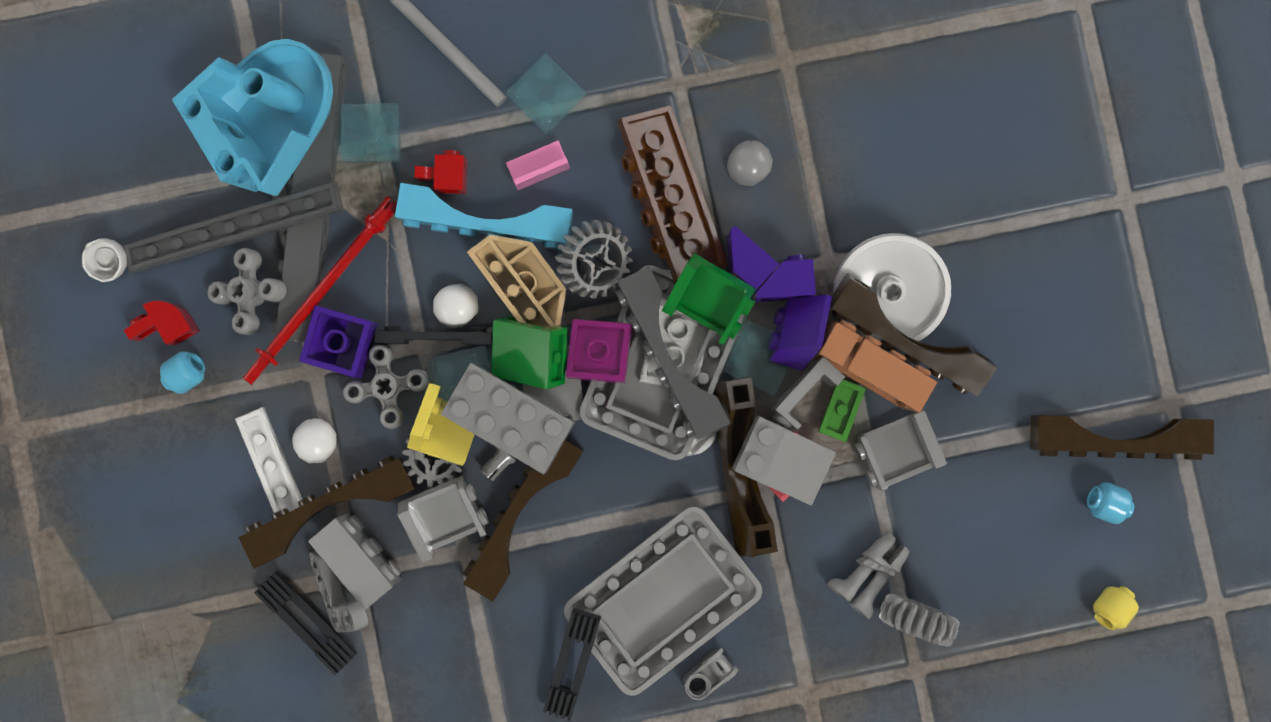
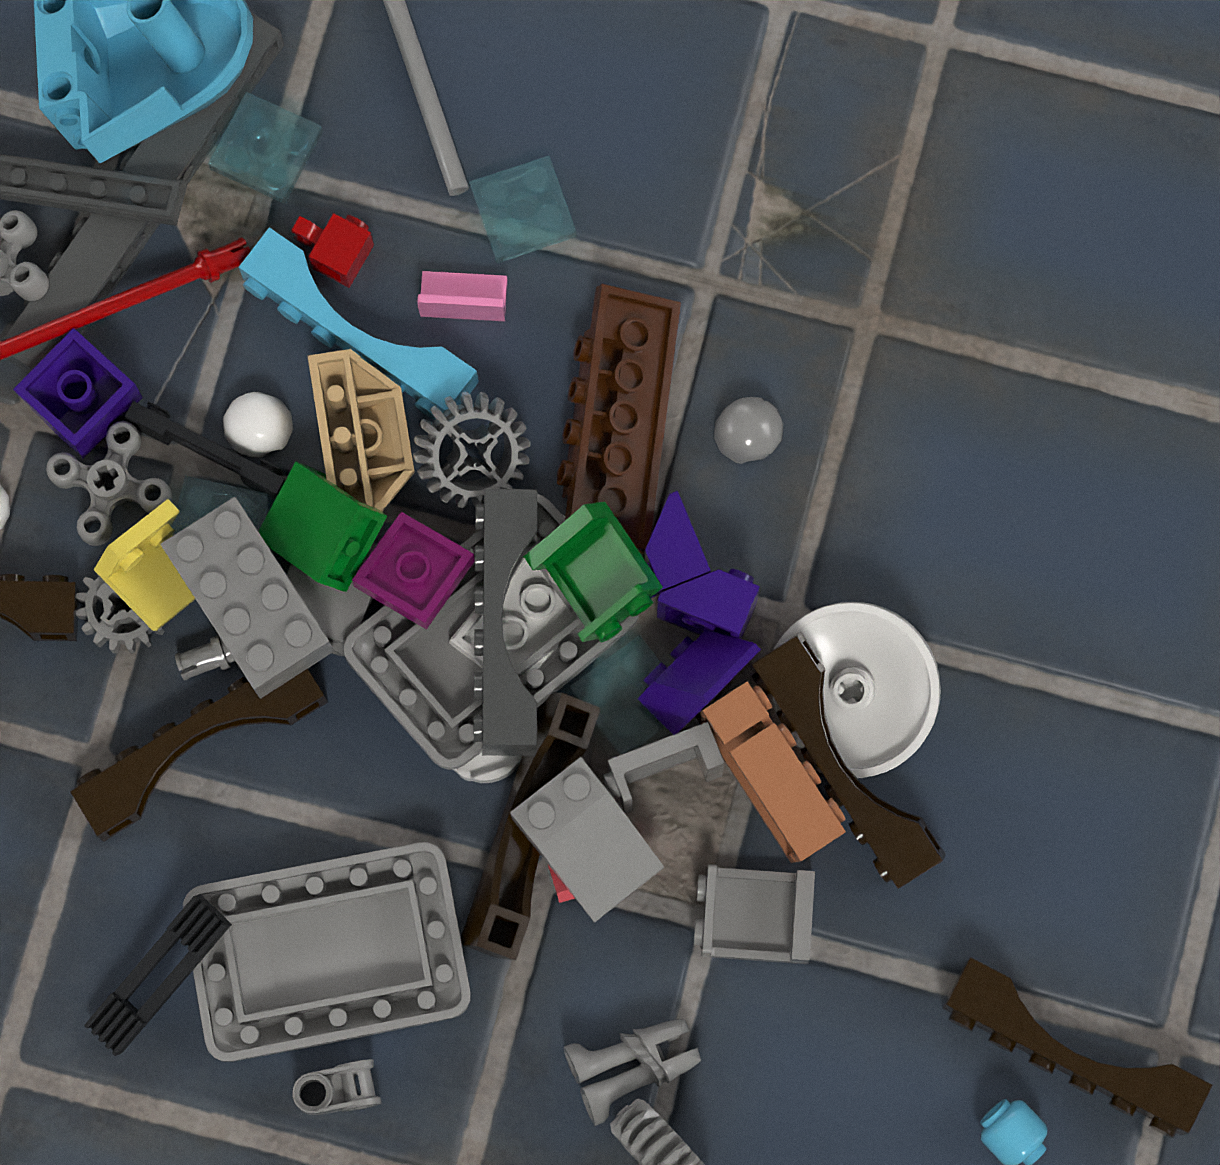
camera: 30 degrees right, 10 degrees down
(441, 516) = (90, 690): light grey panel -> none
(841, 410) = (704, 819): bright green plate -> none

